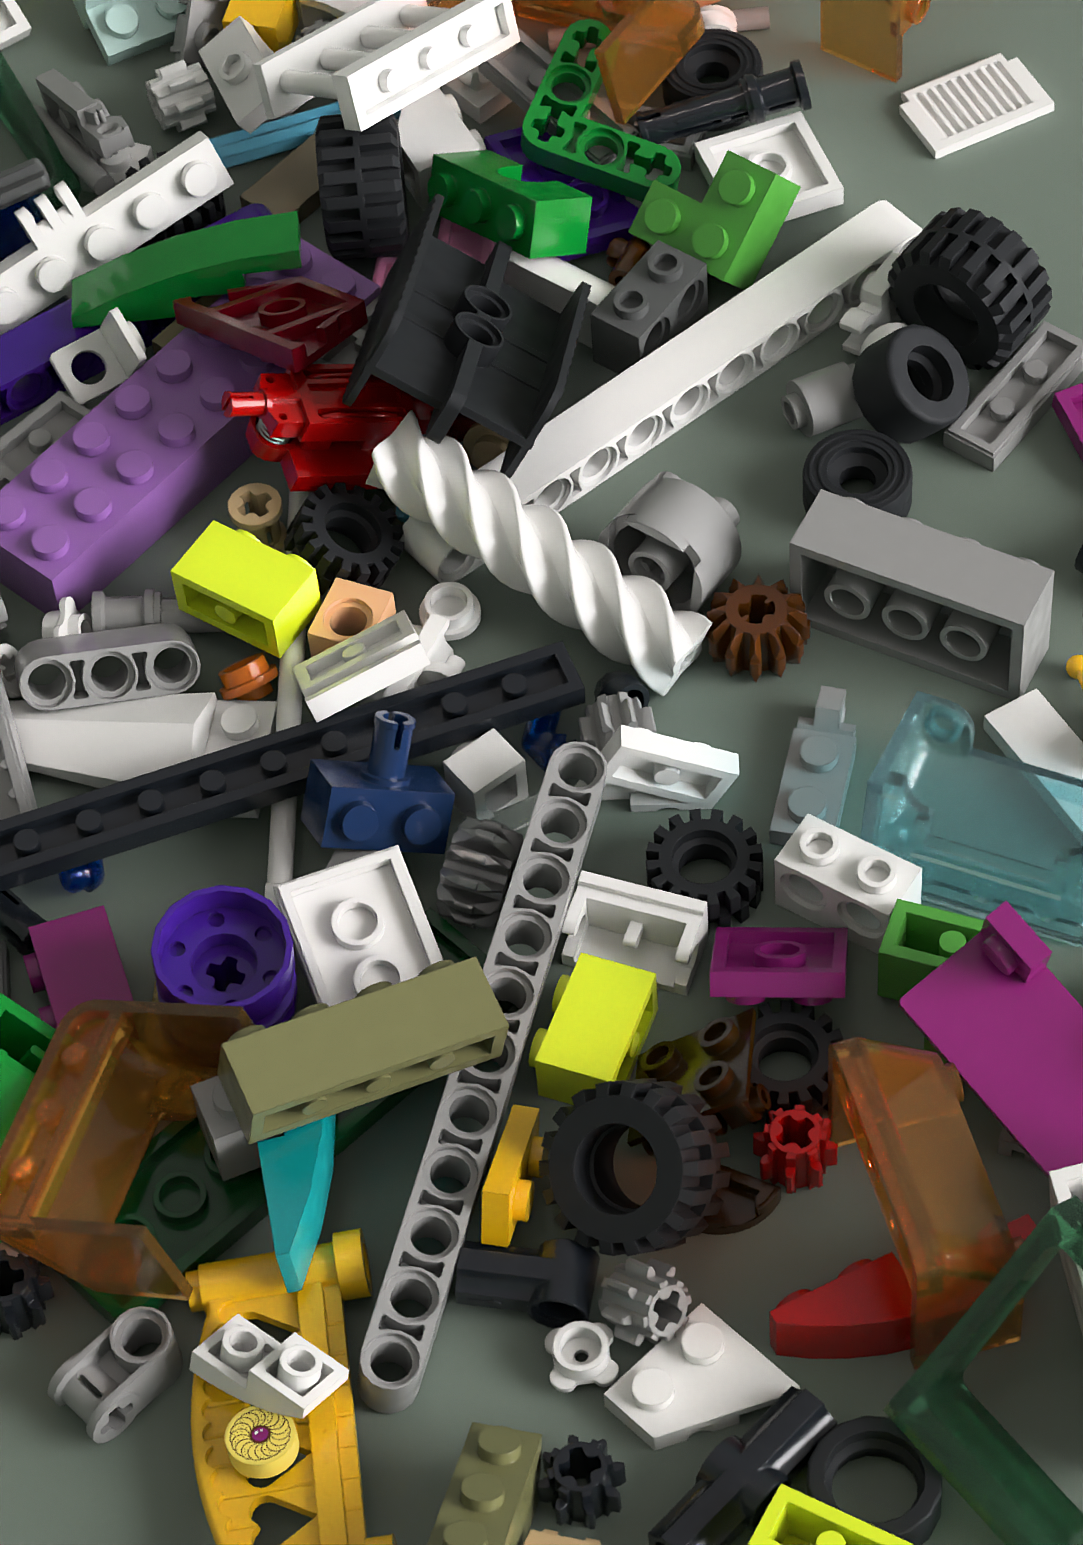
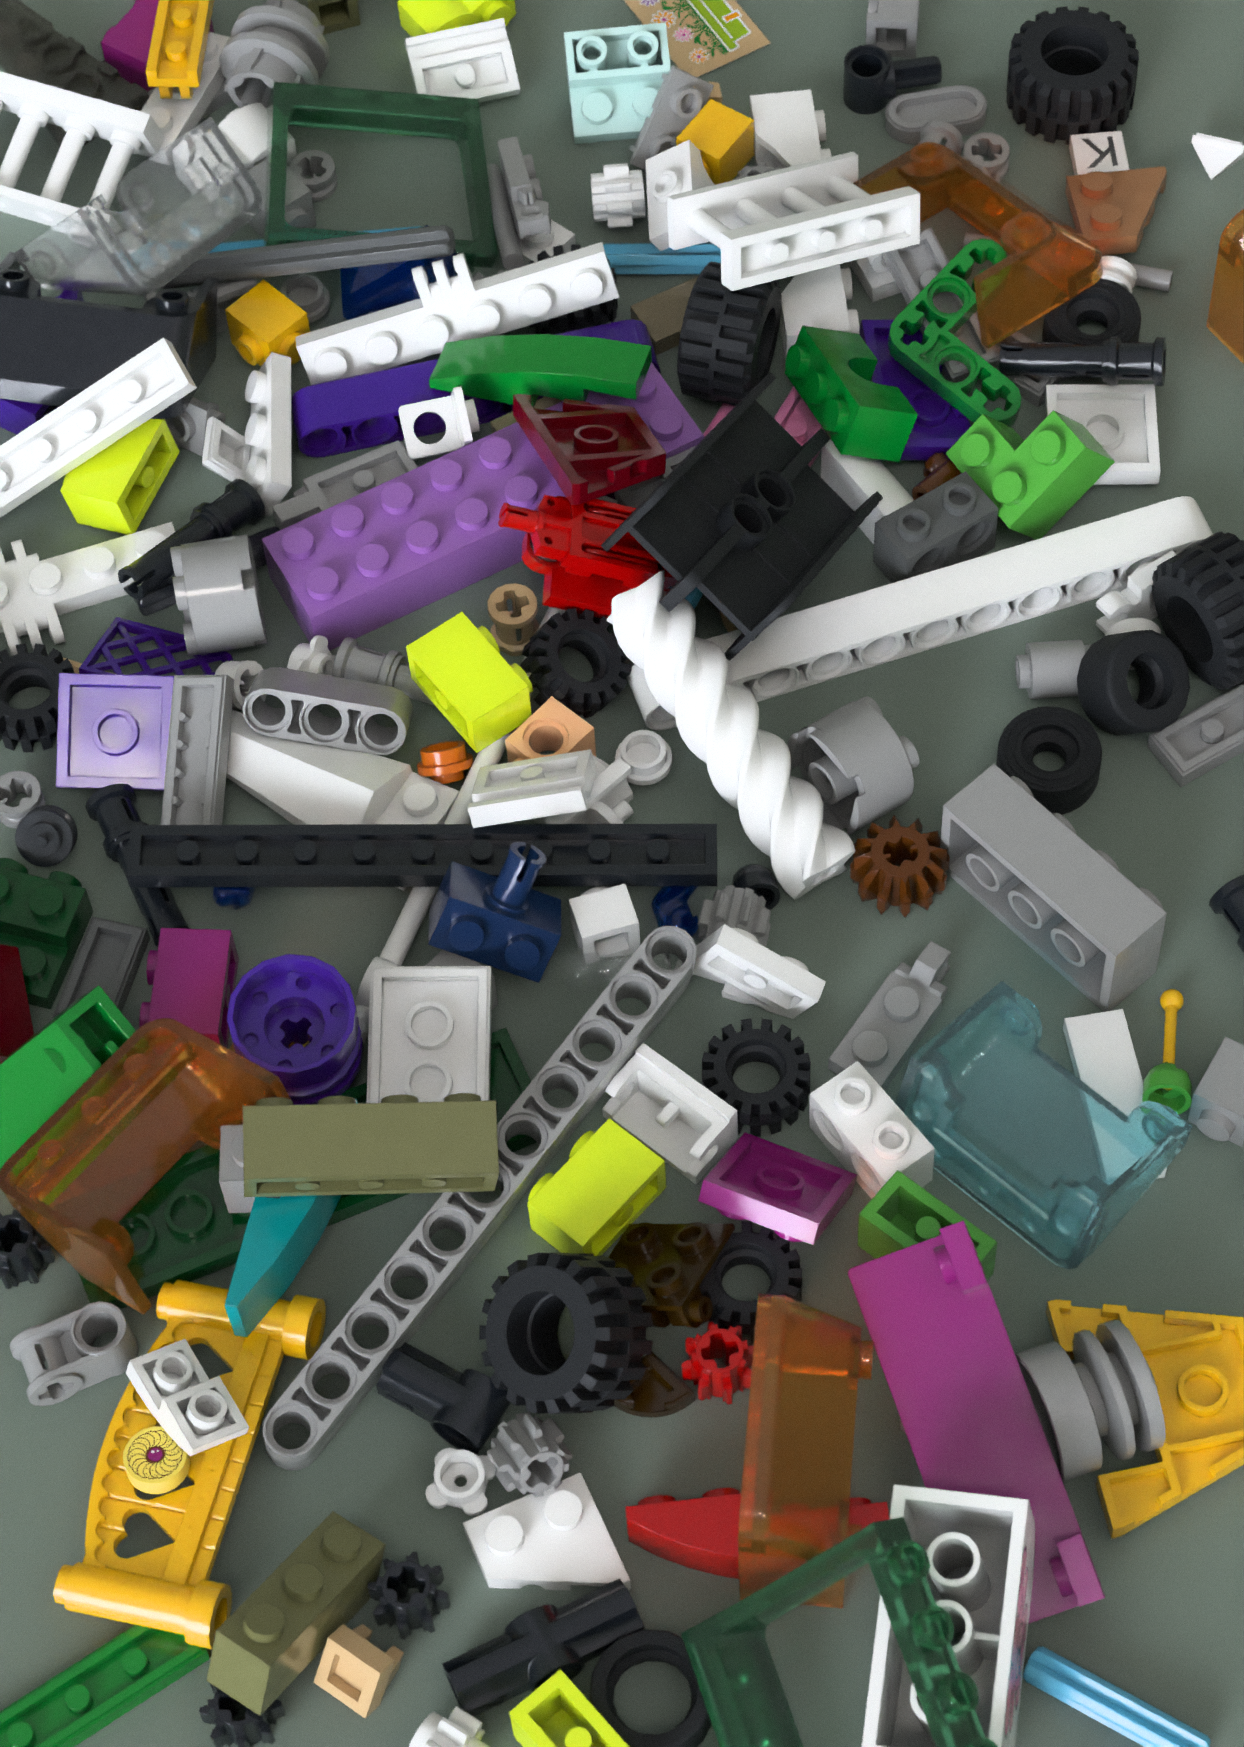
camera: 20 degrees right, 5 degrees up
(478, 873) = (553, 1009): flat silver gear -> none
(509, 1184) = (457, 1307): yellow plate -> none

